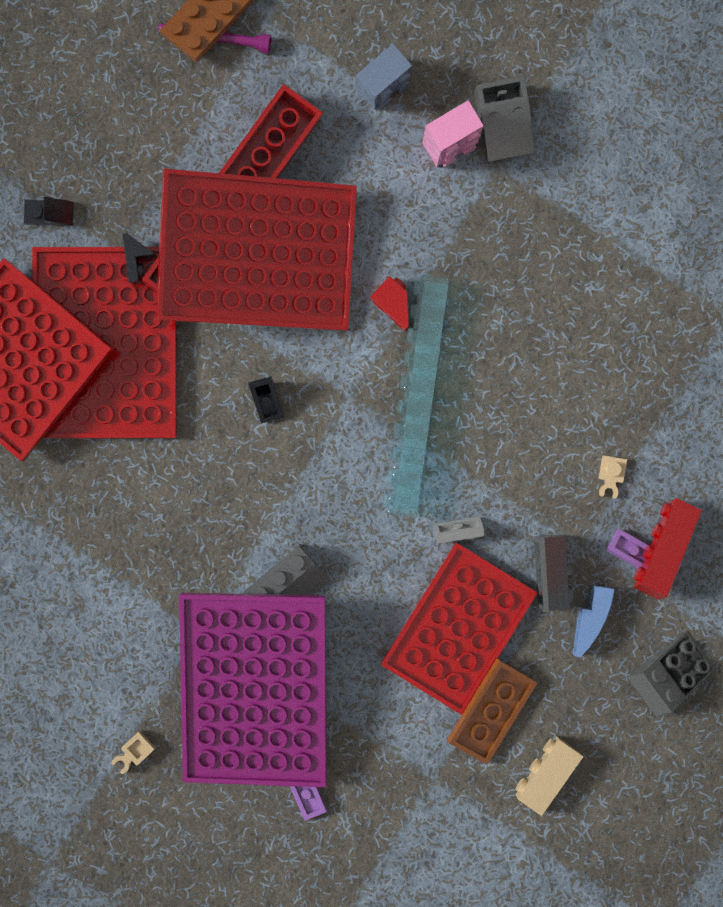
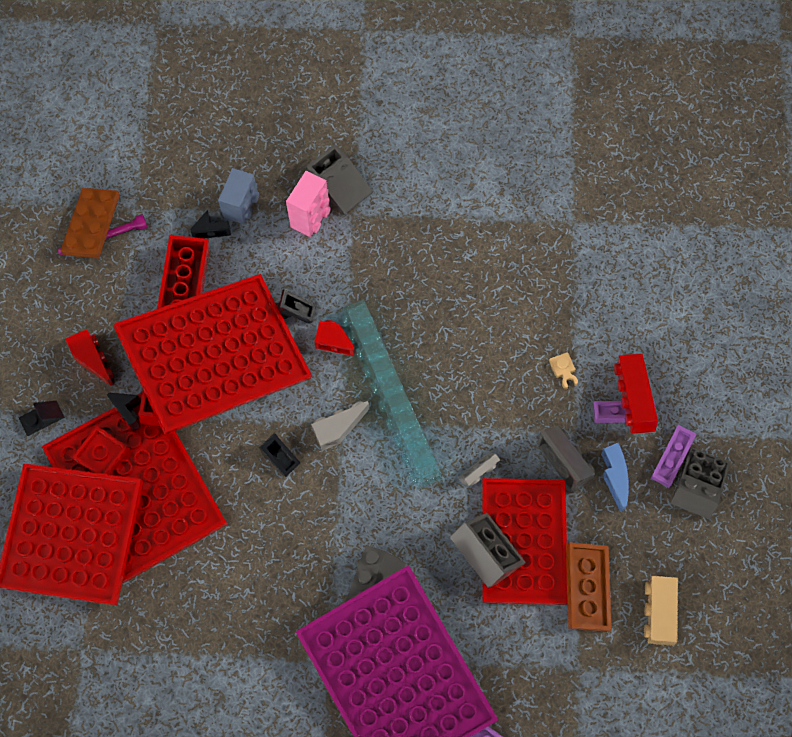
camera: 25 degrees left, 20 degrees down
(87, 290) = (100, 452): none -> red tile
(128, 164) = (86, 354): none -> red slope
(328, 93) = (205, 229): none -> black slope
(339, 402) = (334, 429): none -> light grey slope
(374, 244) = (296, 306): none -> black slope
(415, 620) = (487, 549): none -> dark grey slope
(662, 631) = (673, 456): none -> medium lavender plate

